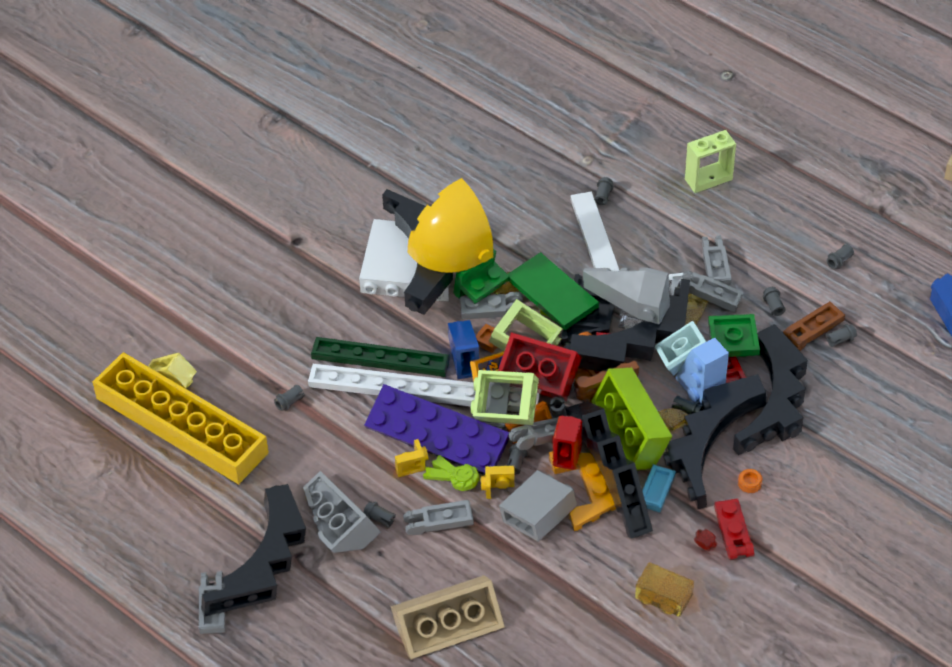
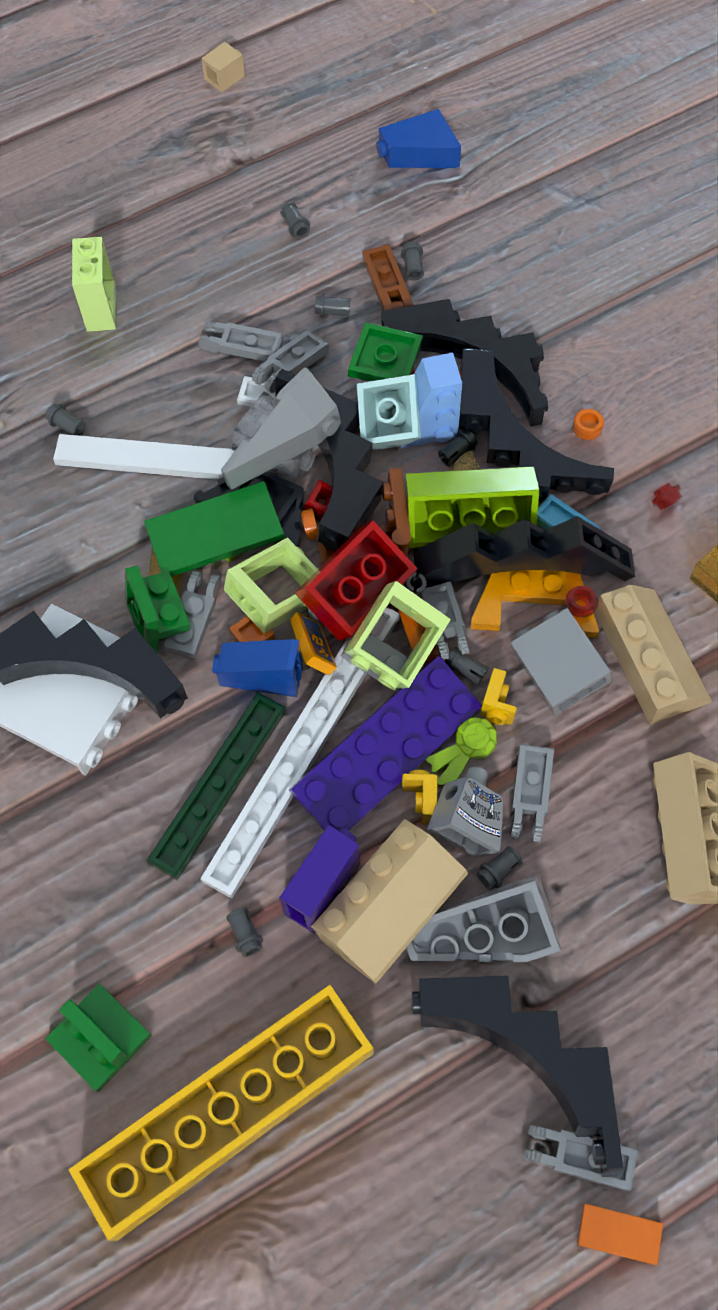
camera: 70 degrees left, 15 degrees up
(173, 634) = (620, 1234): none -> orange tile
(174, 368) = (123, 1101): light yellow arch -> none
(206, 348) = (97, 1037): none -> green bracket
(332, 417) = (321, 877): none -> dark purple brick
(333, 456) = (389, 900): none -> tan slope
(406, 481) = (469, 814): none -> light grey torso
(452, 232) = (104, 598): yellow brick -> none
(567, 442) = (488, 588): red brick -> none
(572, 559) = (650, 653): none -> tan slope
(590, 500) = (585, 594): none -> clear red plate
(733, 528) = (656, 464): red plate -> none

